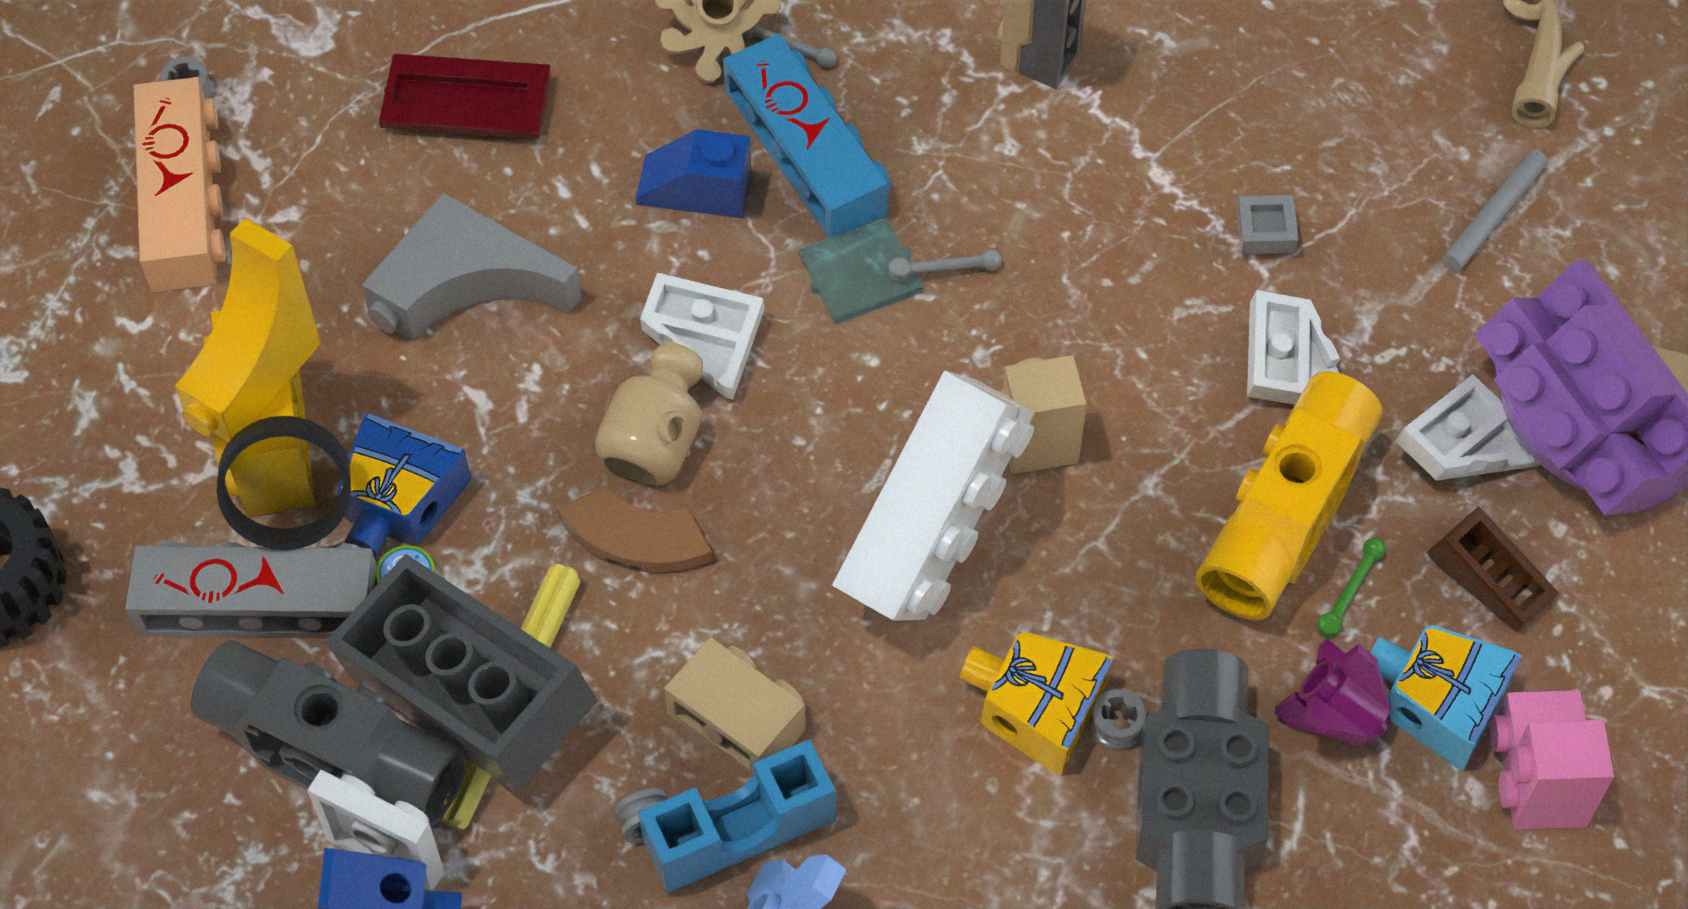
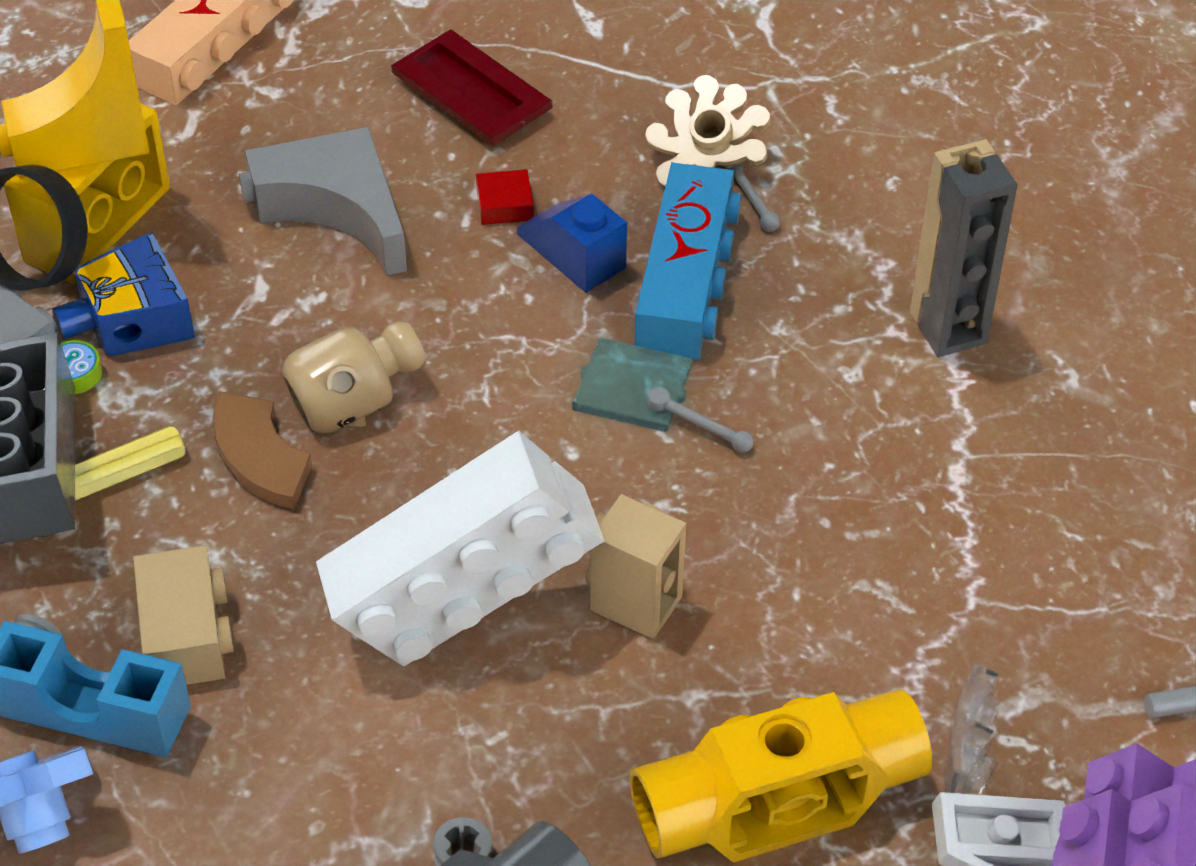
camera: 40 degrees right, 10 degrees down
(597, 178) = (504, 197): none -> red tile
(707, 320) = (464, 342): white wing -> none
(1039, 694) = (416, 780): torso -> none
(1267, 224) = (1004, 563): light grey plate -> none
(1285, 347) = (926, 661): white wing -> none
(1381, 376) = (971, 735): none -> clear slope

